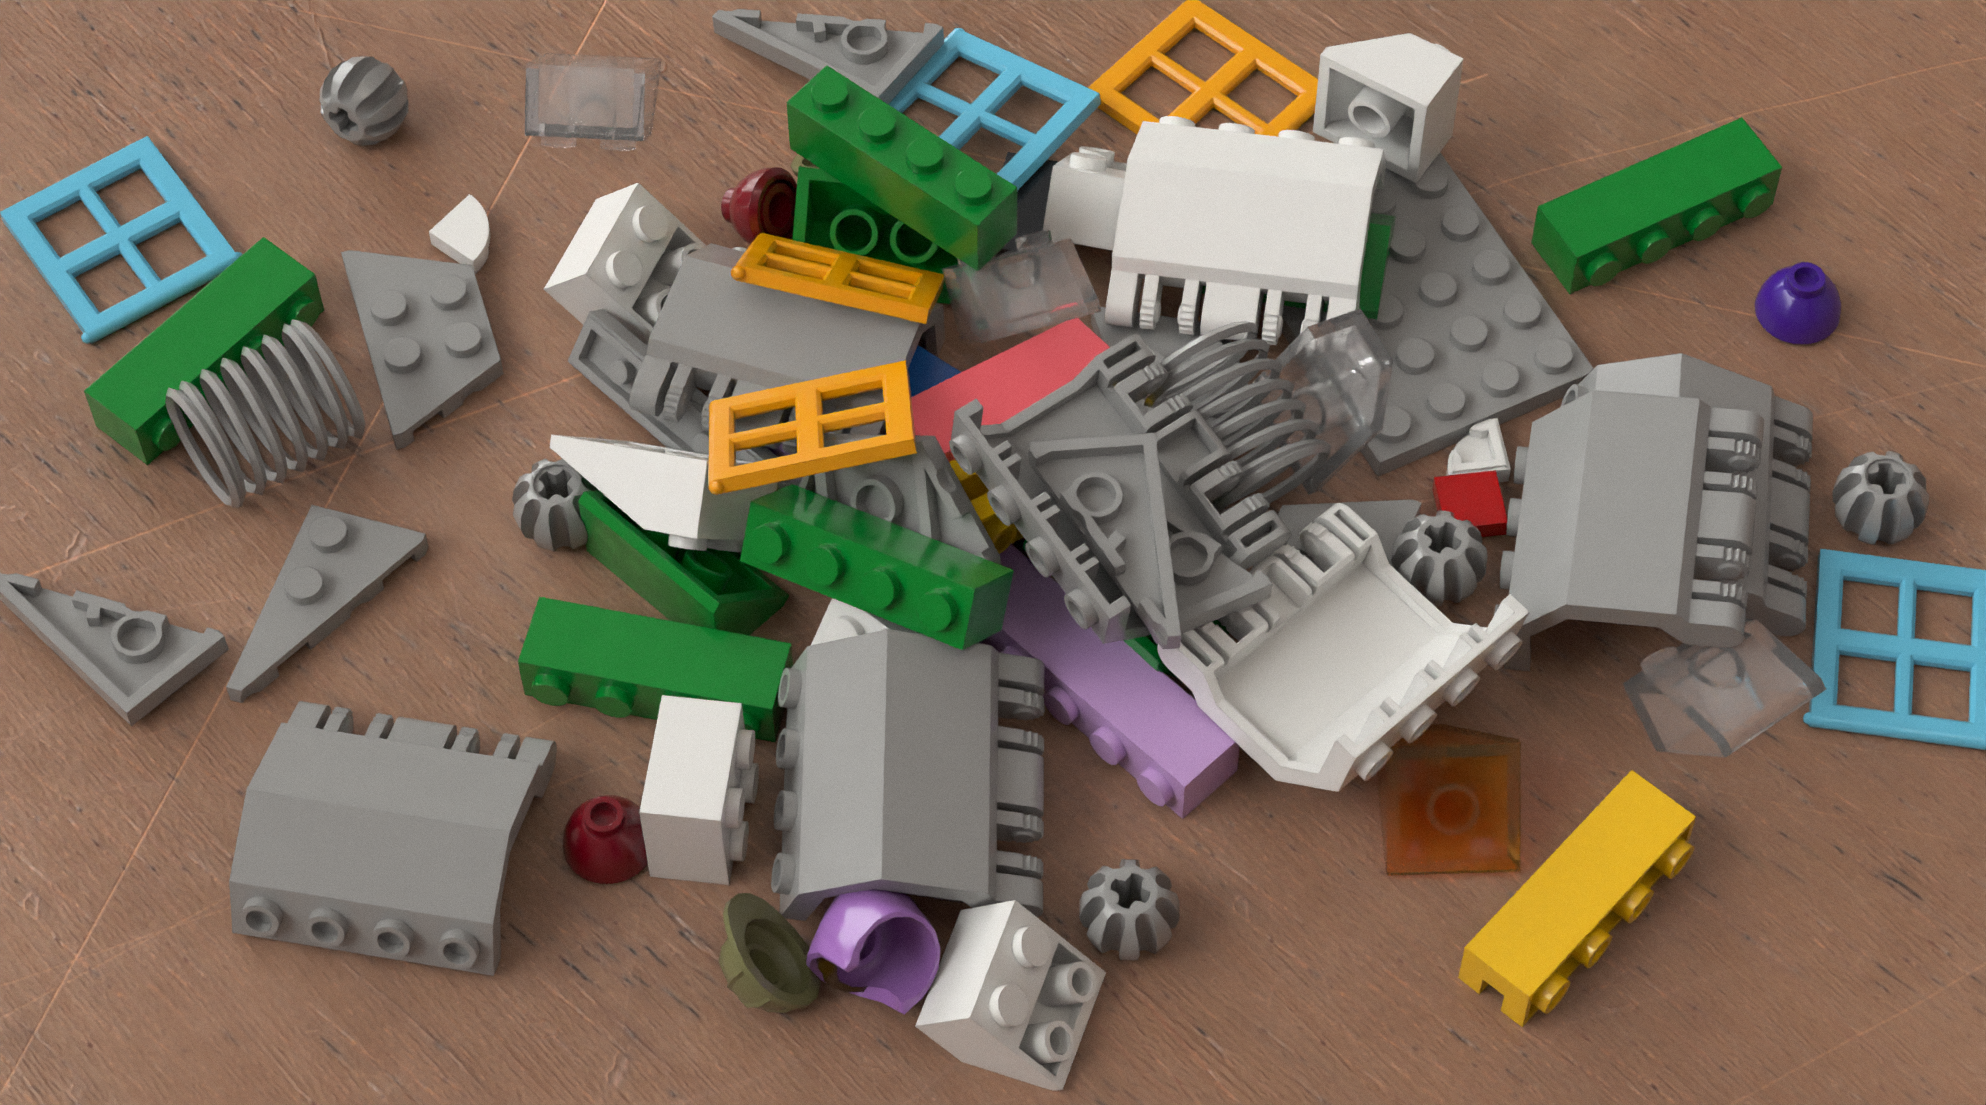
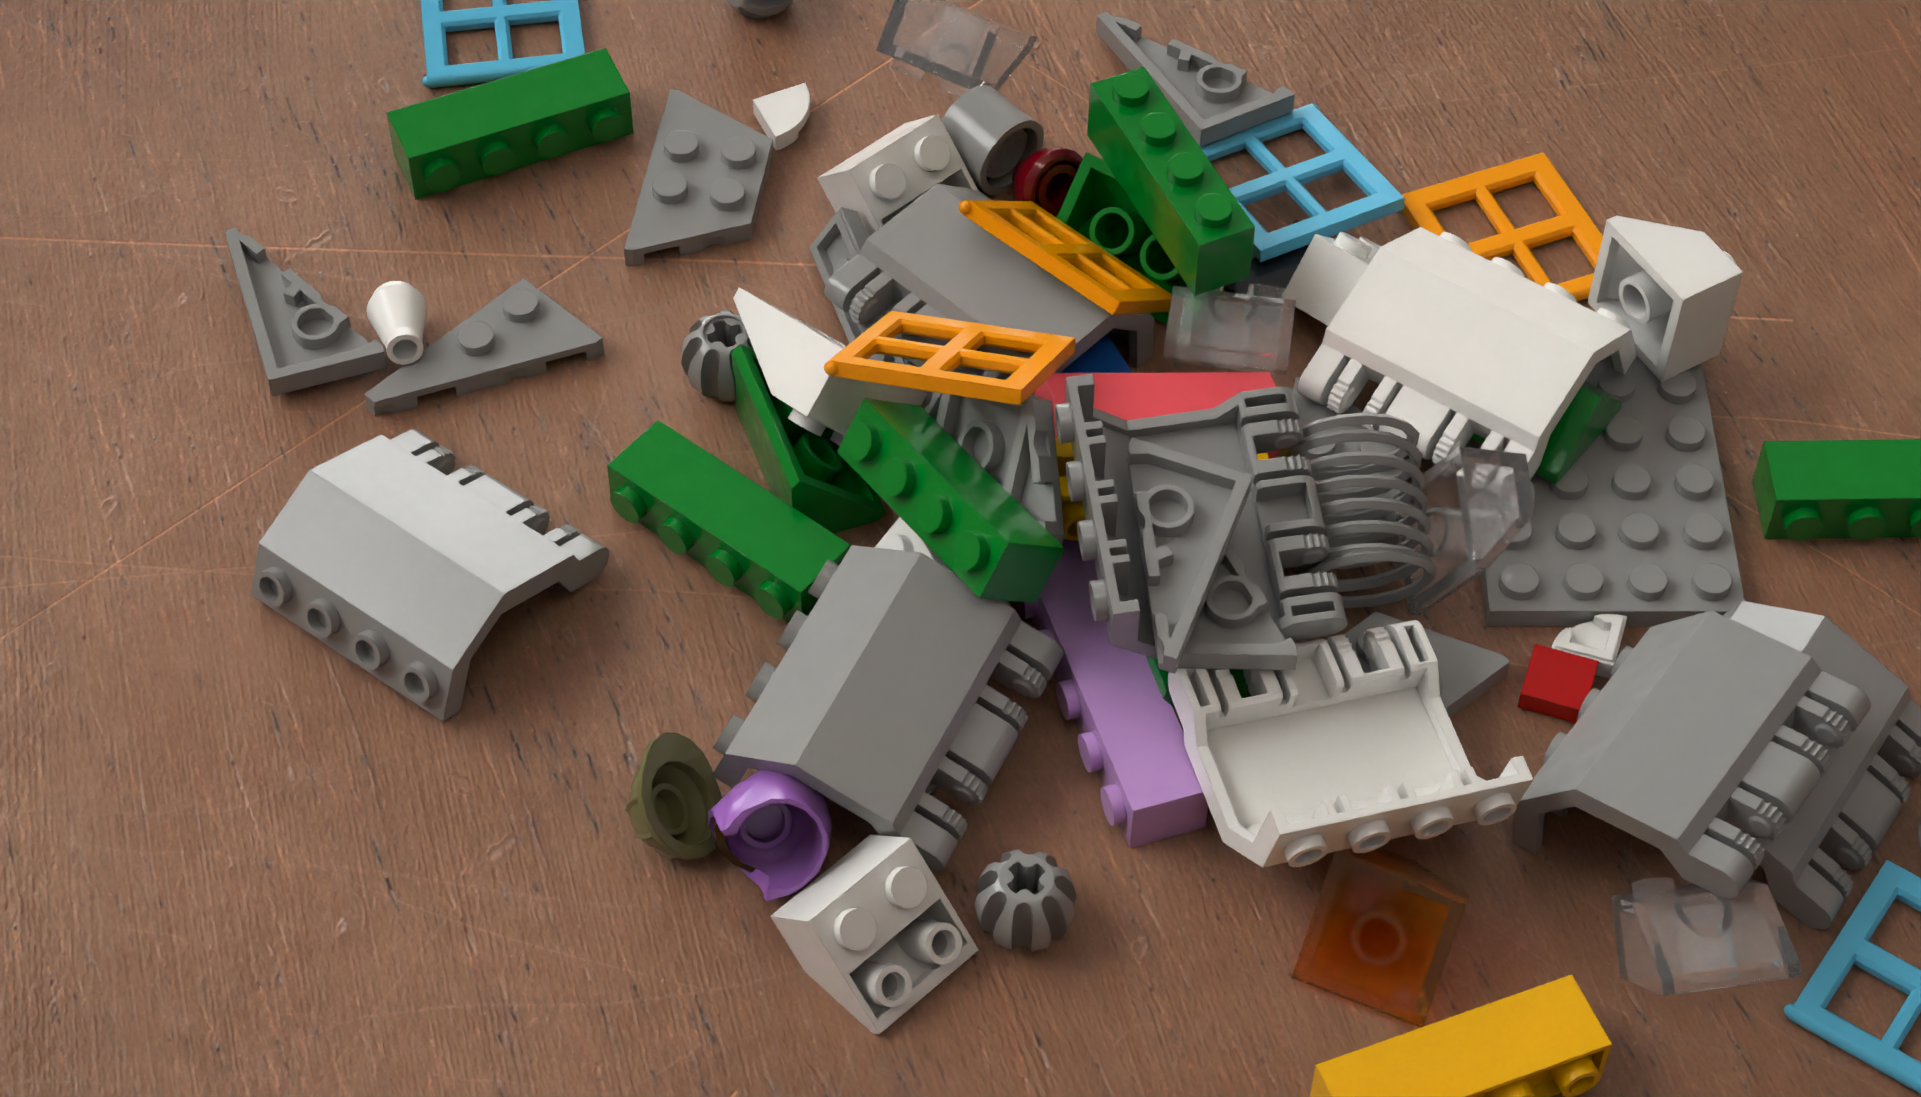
camera: 25 degrees right, 5 degrees down
(217, 597) = (399, 320): none -> white cone
(265, 392) = (459, 168): light grey piece -> none
(605, 840) = (606, 649): dark red brick -> none
(689, 181) = (991, 136): none -> light grey piece
(698, 790) = (694, 632): white brick -> none
(1440, 556) = (1497, 714): light grey piece -> none

